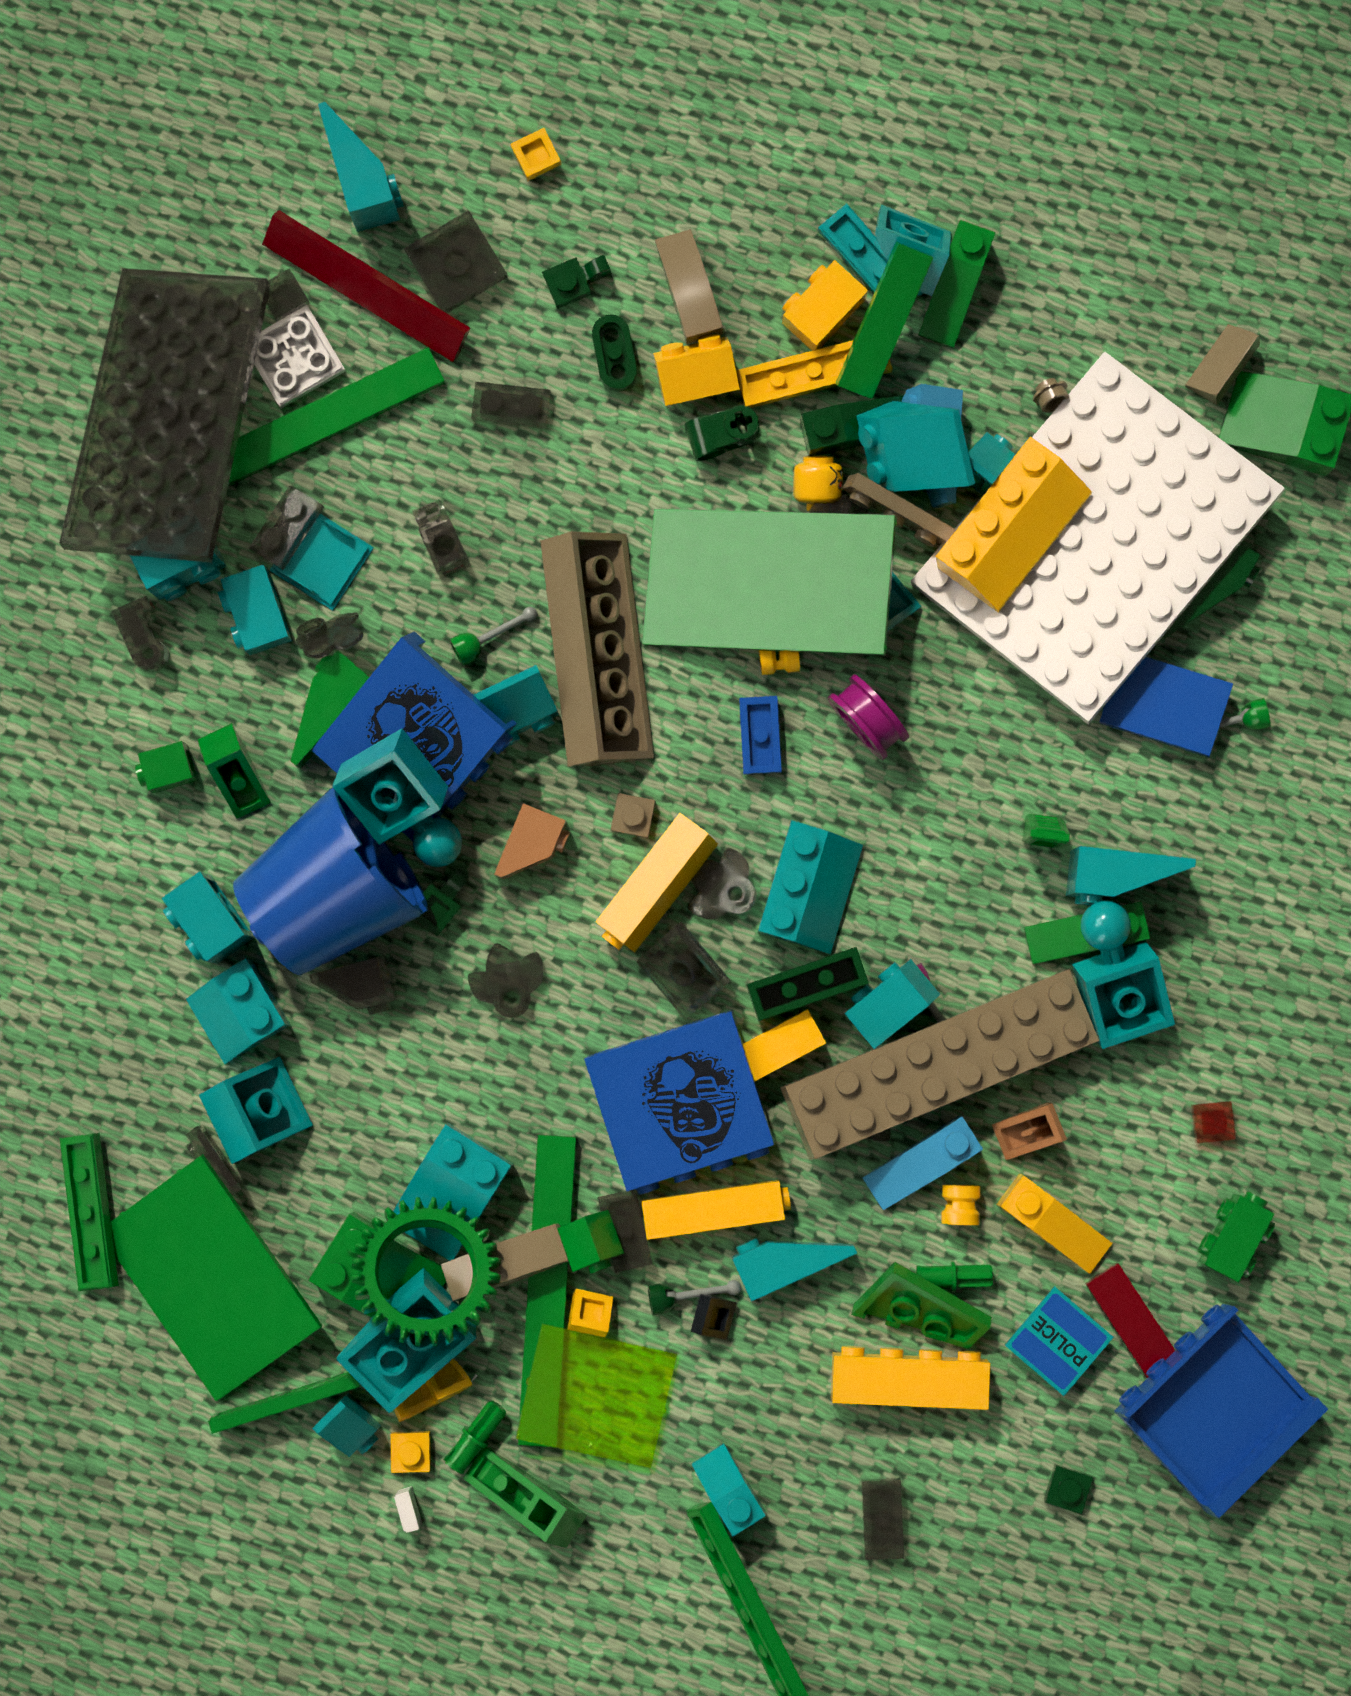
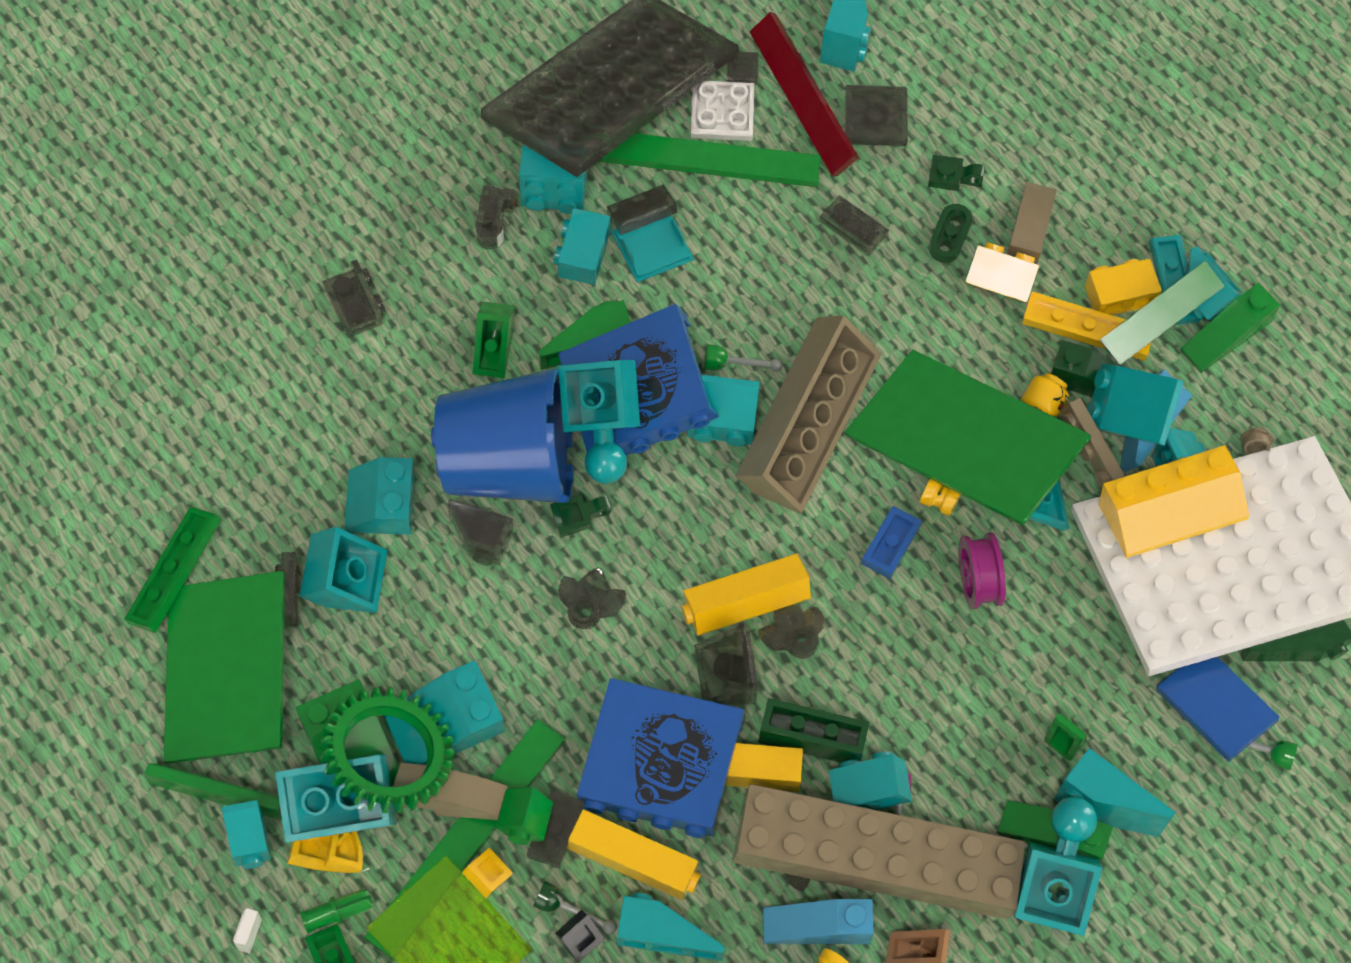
camera: 25 degrees right, 20 degrees down
(64, 818) = (354, 301): none -> clear smoke bracket
(166, 767) = (448, 308): green brick -> none
(207, 918) = (403, 416): teal brick -> none
(322, 637) = (616, 288): clear smoke plate -> none
(410, 1452) = (279, 891): yellow plate -> none
(440, 539) = (745, 279): clear smoke leg -> none
(532, 841) = (672, 512): medium nougat slope -> none
(535, 154) = (977, 82): yellow plate -> none
(632, 815) = (760, 542): dark tan plate -> none
(714, 433) = (992, 326): dark green piece -> none
(810, 887) = (860, 666): teal slope -> none

